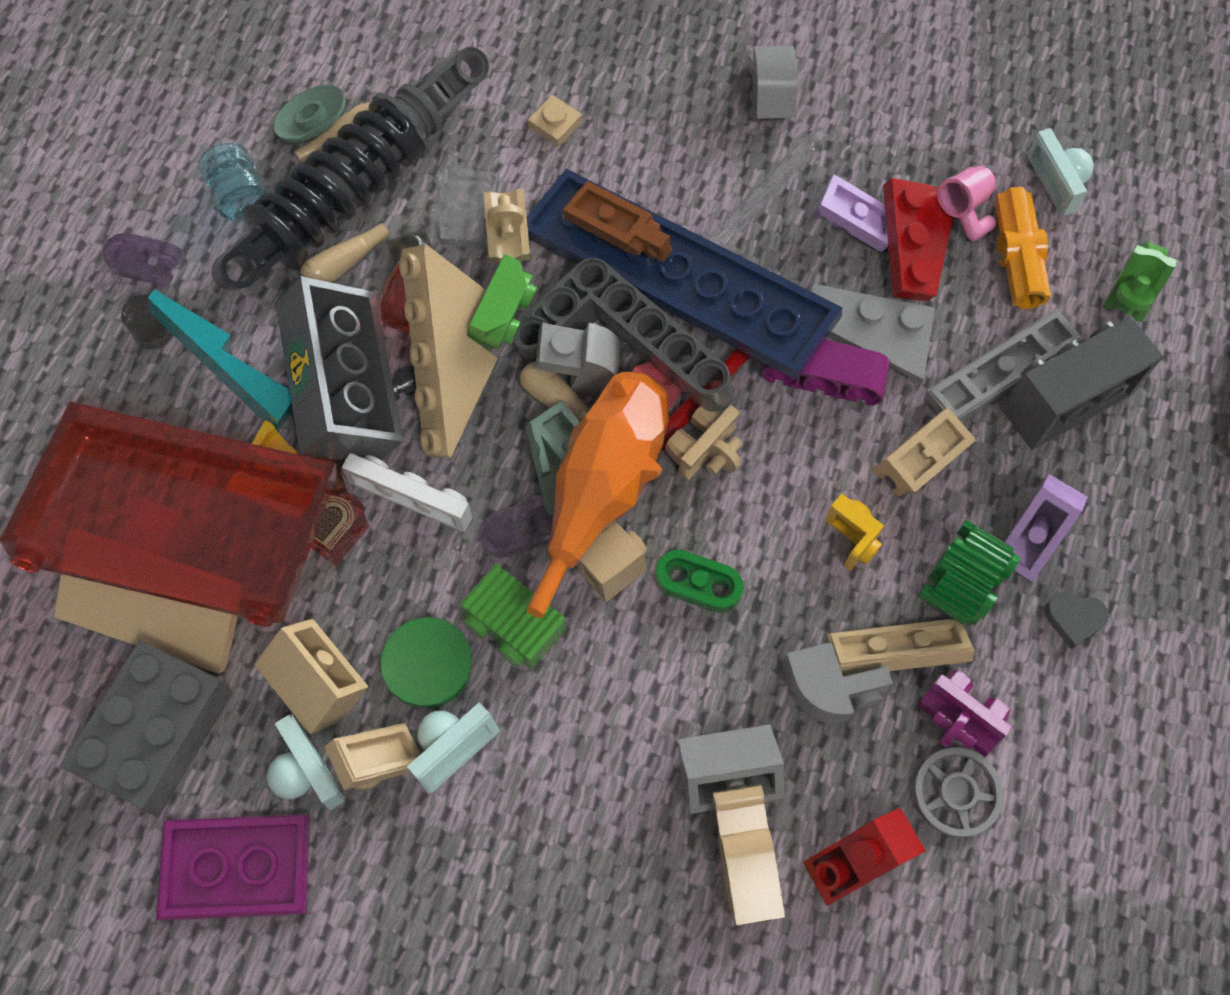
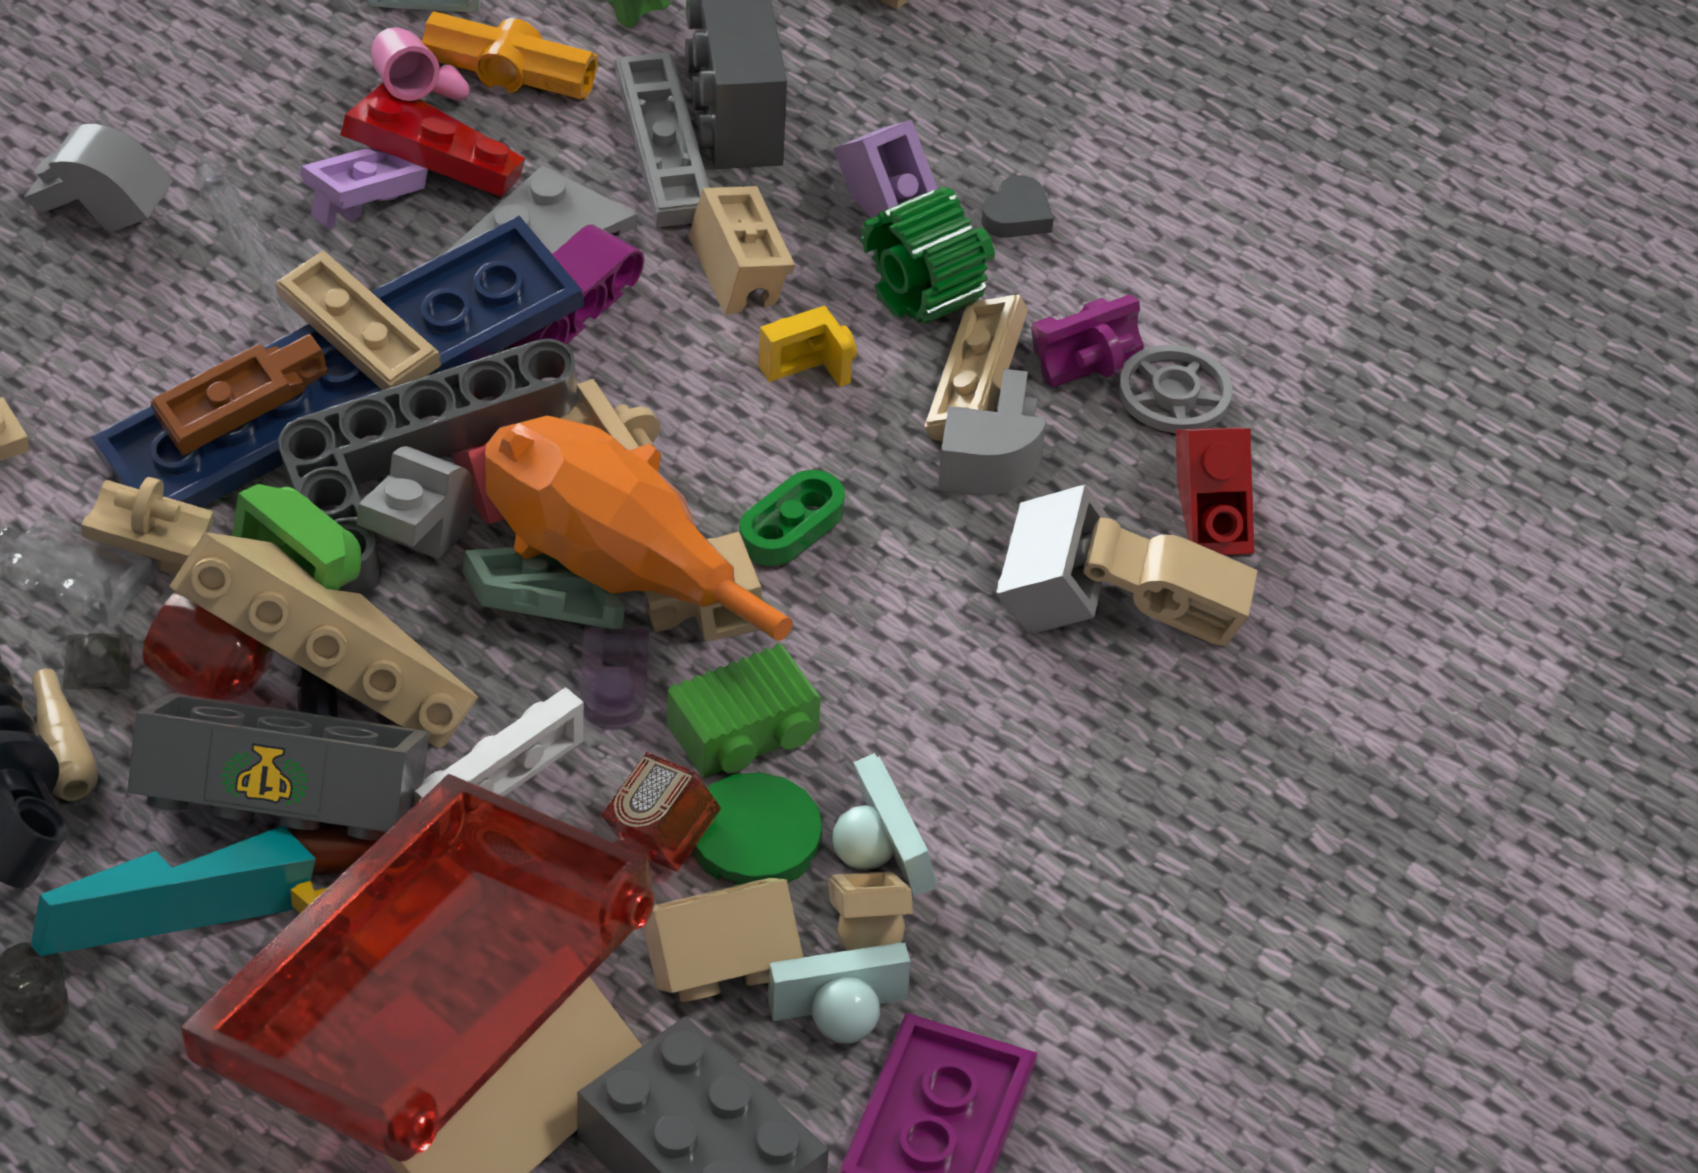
camera: 70 degrees left, 20 degrees down
(397, 600) = (661, 811): none -> clear red brick
(551, 389) = (426, 574): tan piece -> none
(704, 260) = (357, 322): none -> tan tile

